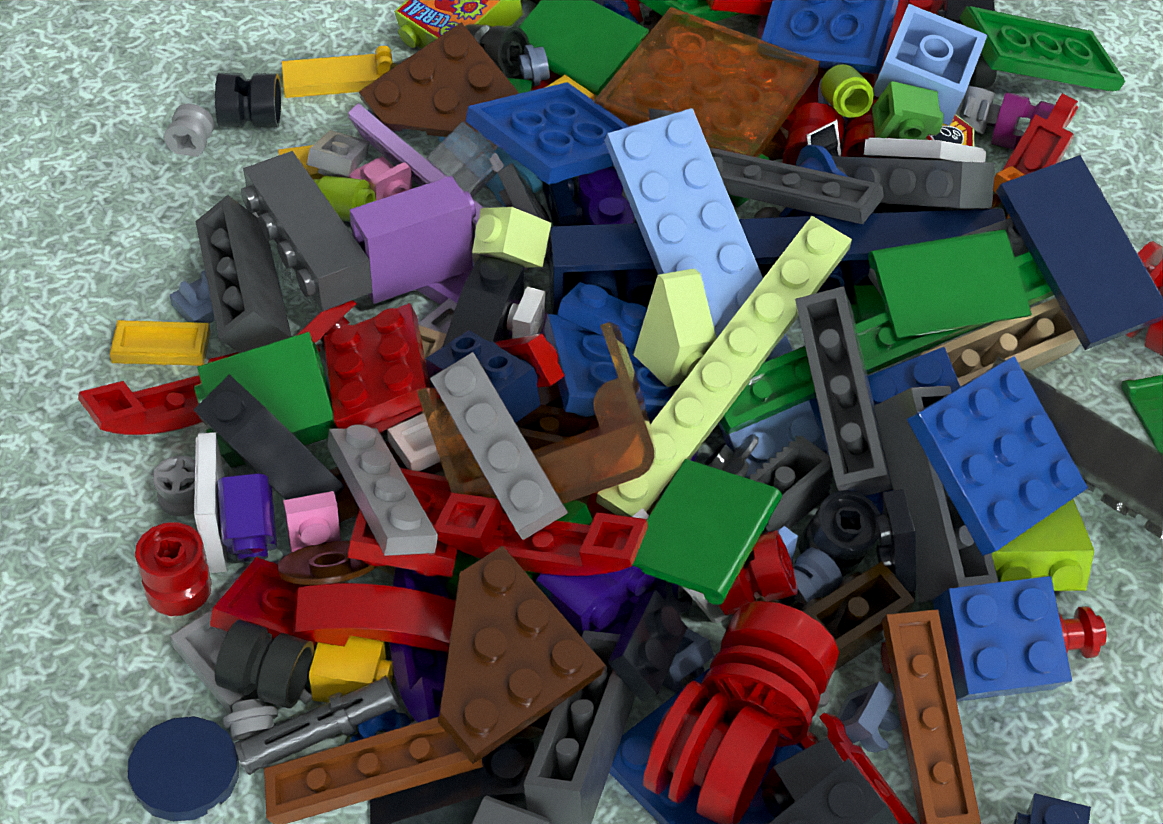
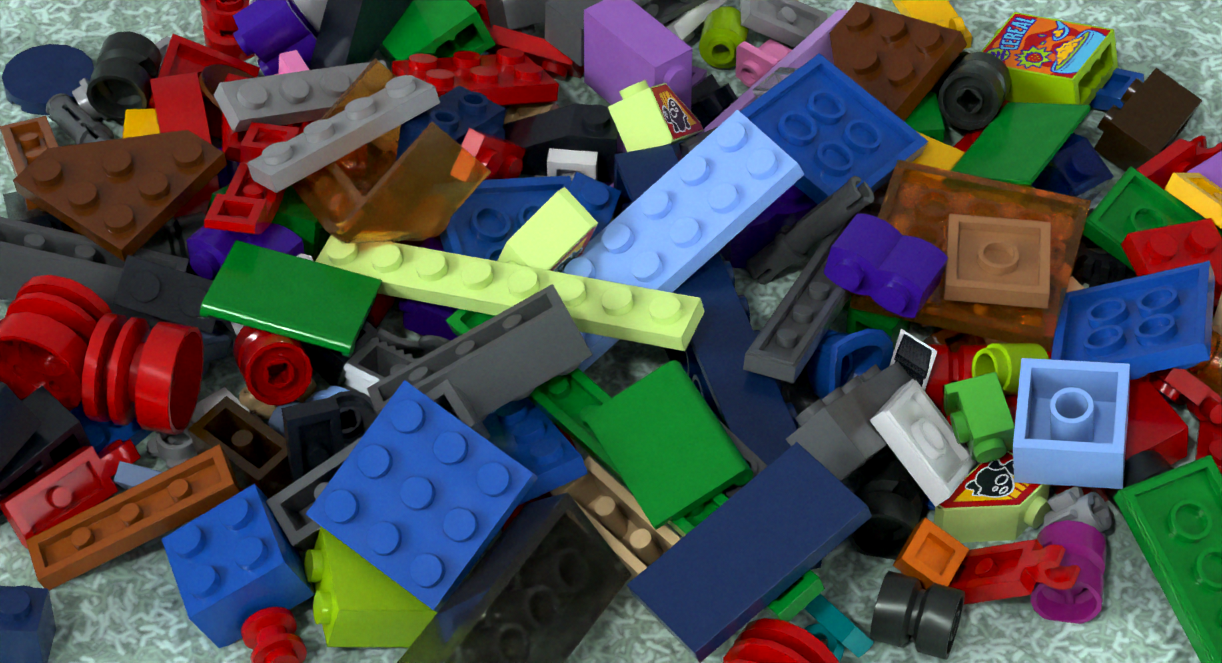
camera: 80 degrees right, 5 degrees down
(534, 64) = (962, 122): sand blue plate -> none
(746, 63) = (998, 261): none -> medium nougat plate
(750, 120) = (887, 266): none -> dark purple brick

